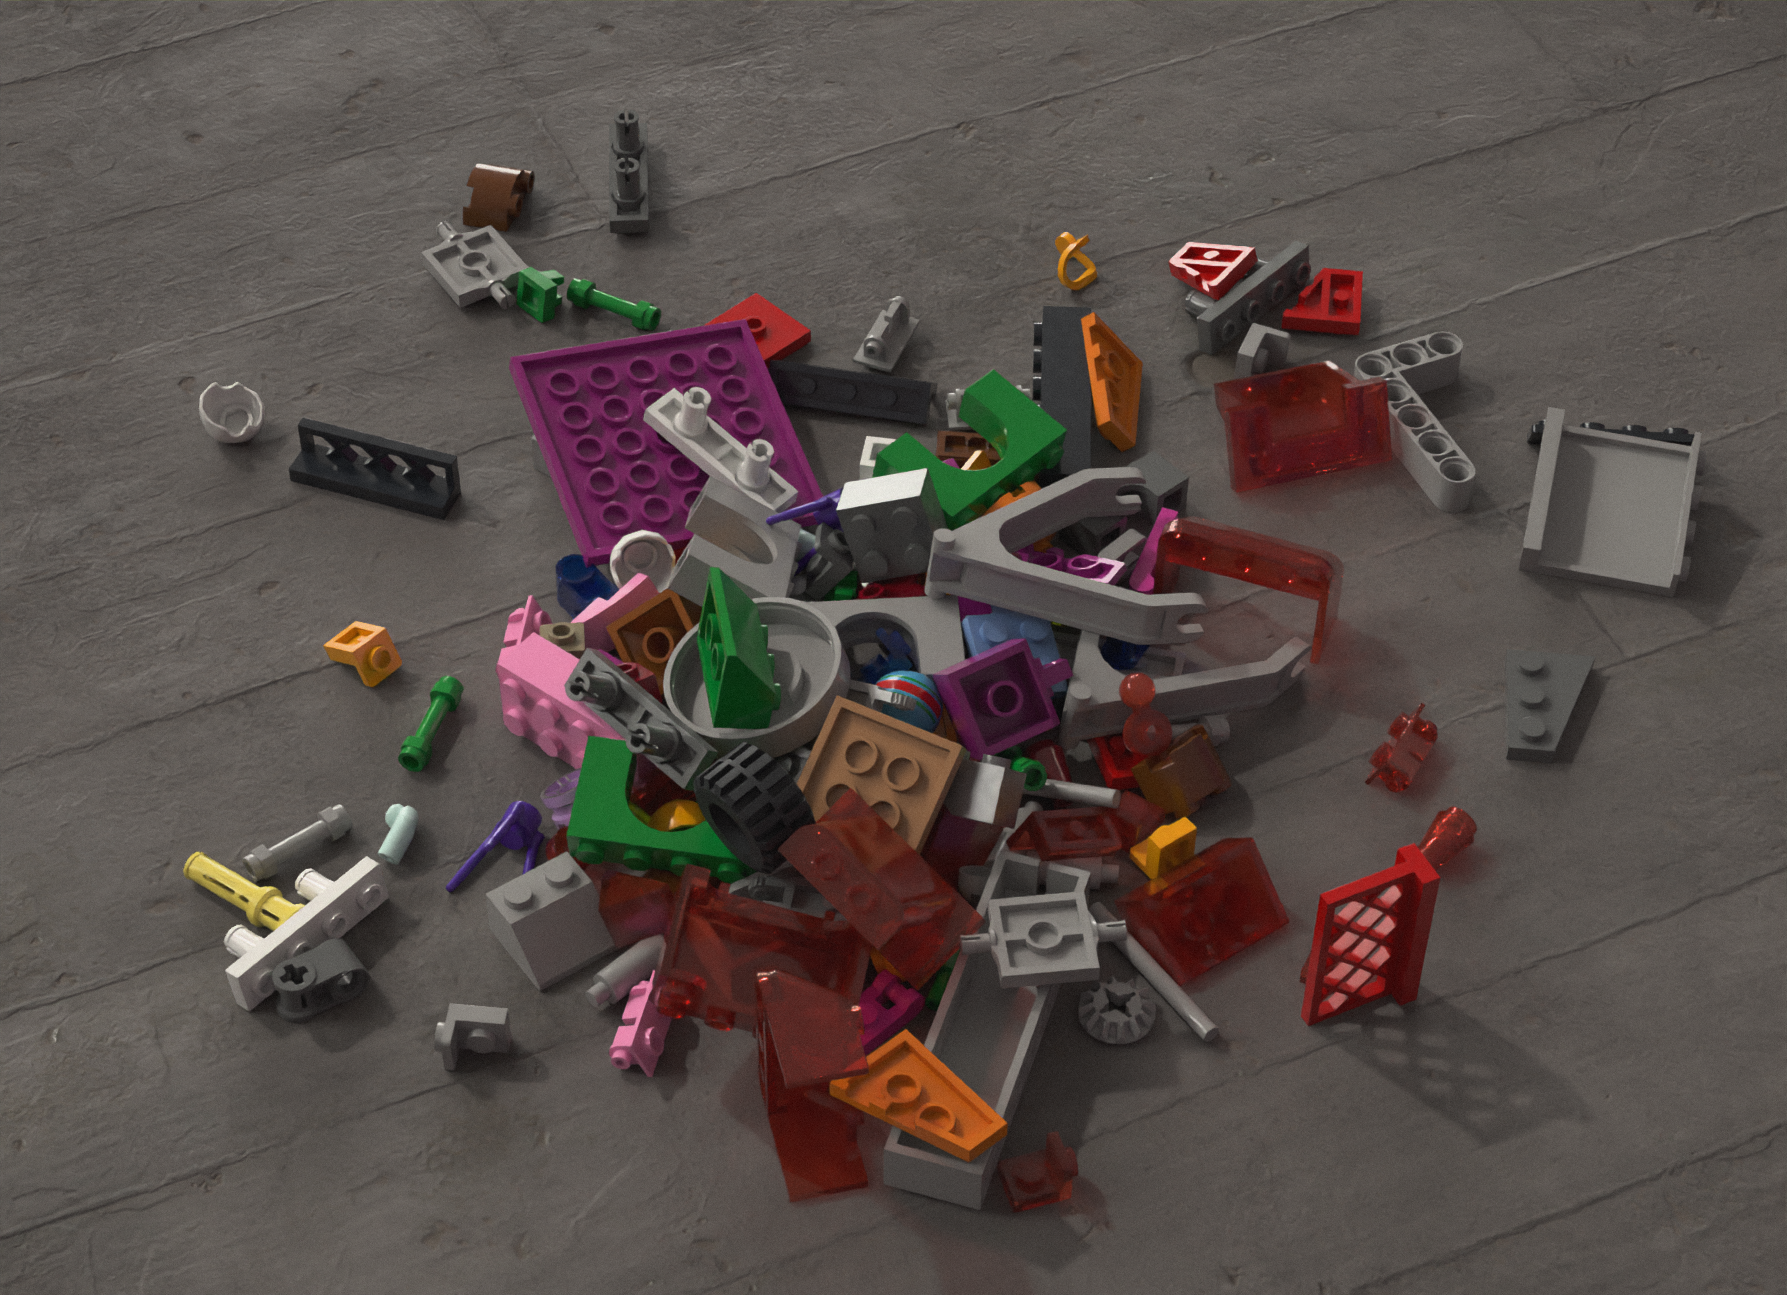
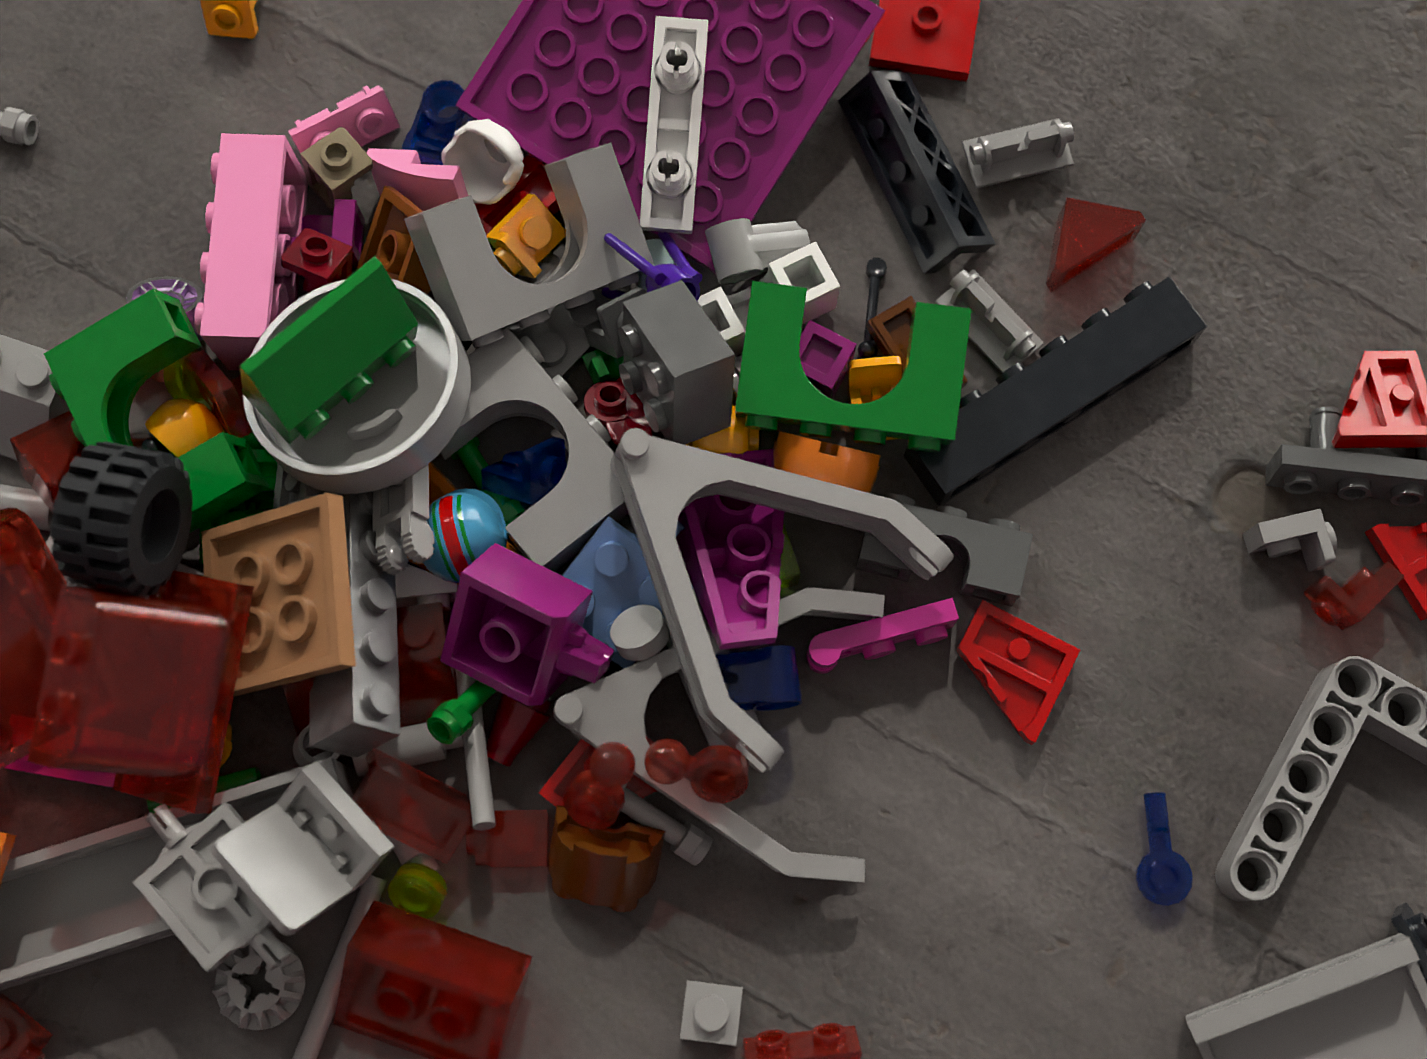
camera: 55 degrees right, 30 degrees up
(403, 825) = (57, 185): light aqua arm -> none
(418, 749) = (149, 131): green bar -> none
(514, 831) = (106, 284): dark purple plant -> none
(639, 718) = (208, 335): dark grey plate -> none
(832, 473) = (745, 249): none -> light grey piece
(972, 336) = (1086, 236): none -> clear red slope
(1056, 856) = (303, 851): none -> light grey bracket
(1057, 641) = (639, 632): none -> light grey tile
(1069, 248) = (1307, 246): light orange piece -> none
(1114, 382) = (1118, 422): orange wing -> none
(1122, 877) = (418, 890): none -> clear neon green tile
(1165, 848) = (481, 901): light orange bracket -> none
(1183, 653) = (715, 772): none -> clear red plate
(1235, 506) = (1017, 666): none -> red wing
(1255, 560) = (904, 758): clear red windscreen -> none
(1302, 424) = (1208, 652): clear red windscreen -> none
(1318, 342) = (1355, 598): none -> clear red bracket
(1334, 784) = (711, 1012): none -> light grey plate
(1419, 526) = (1161, 873): none -> clear blue plate

